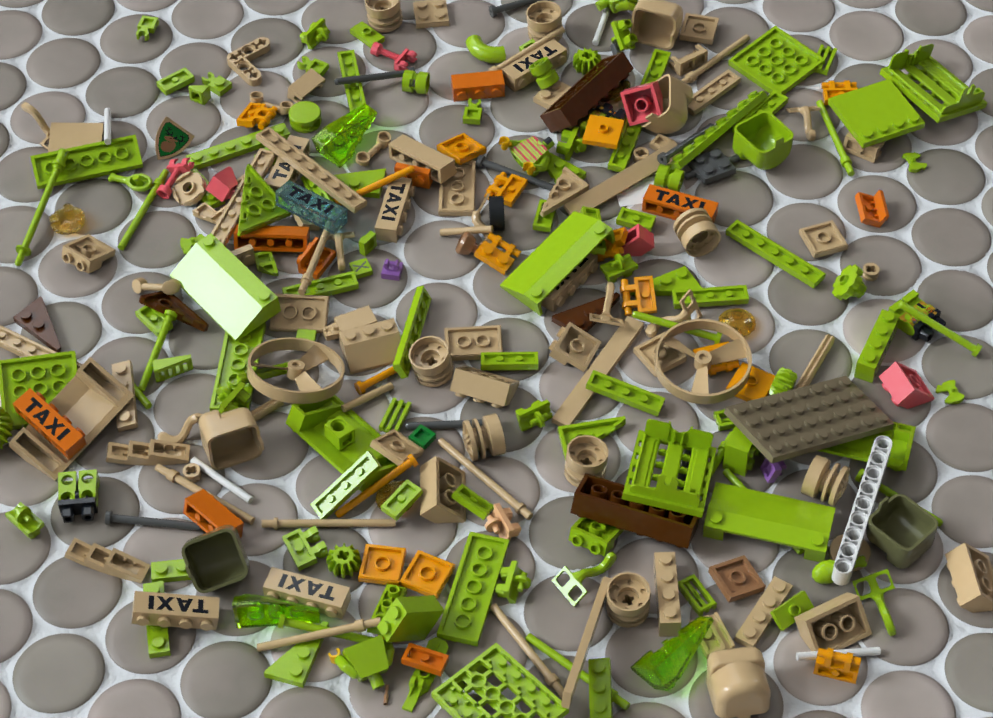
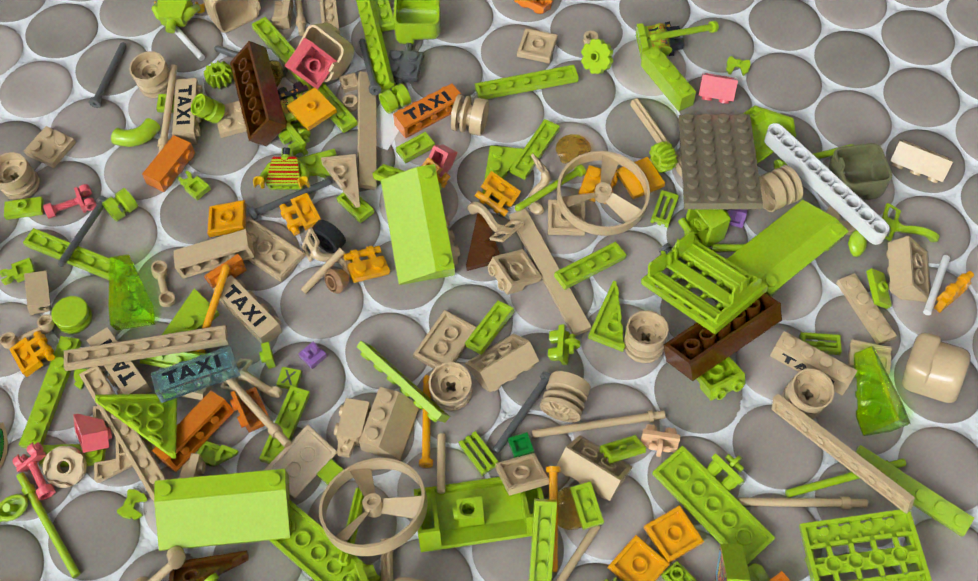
camera: 55 degrees left, 10 degrees up
(577, 578) = (757, 418): lime piece -> none
(618, 267) = (457, 189): lime hips -> none
(622, 34) = (216, 34): lime hips -> none
(736, 578) = (824, 306): medium nougat plate -> none

